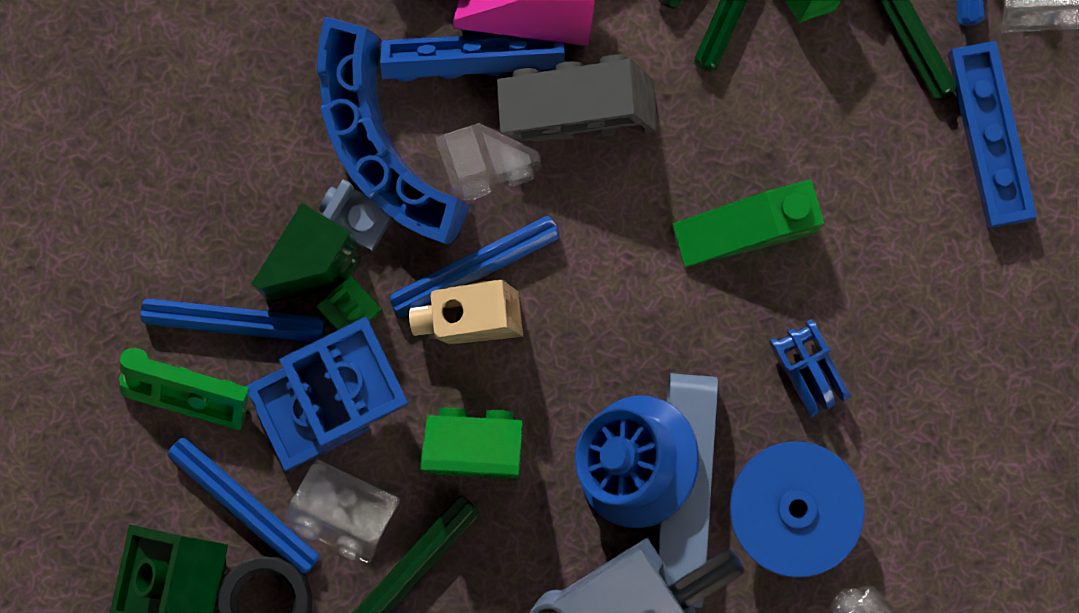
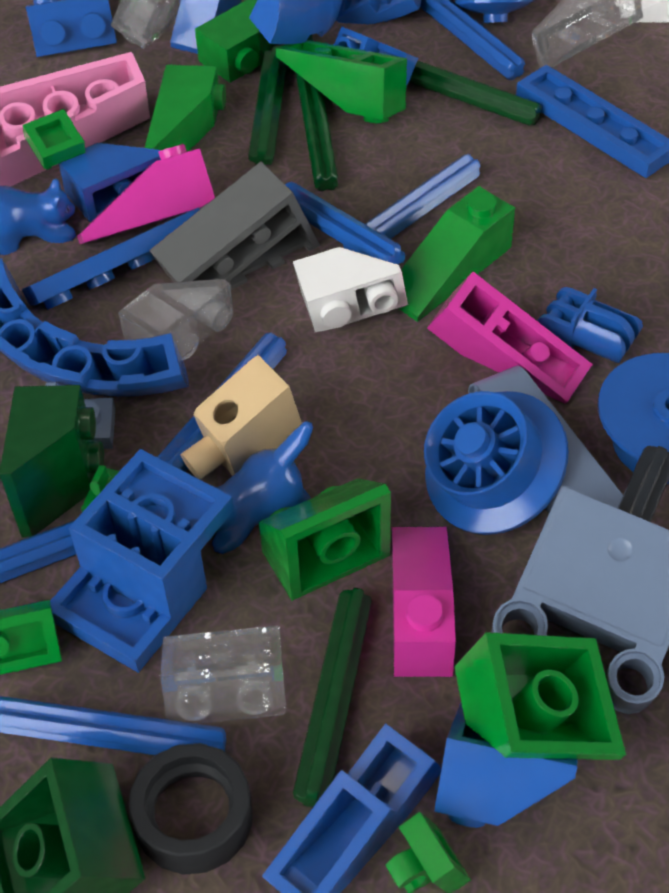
camera: 30 degrees left, 30 degrees down
(455, 374) = (261, 487): none -> blue animal
(515, 532) = (422, 603): none -> dark pink slope
(634, 209) = (348, 287): none -> white slope
(675, 138) = (345, 227): none -> blue axle
(732, 347) = (501, 335): none -> dark pink slope
(760, 140) = (425, 197): none -> axle

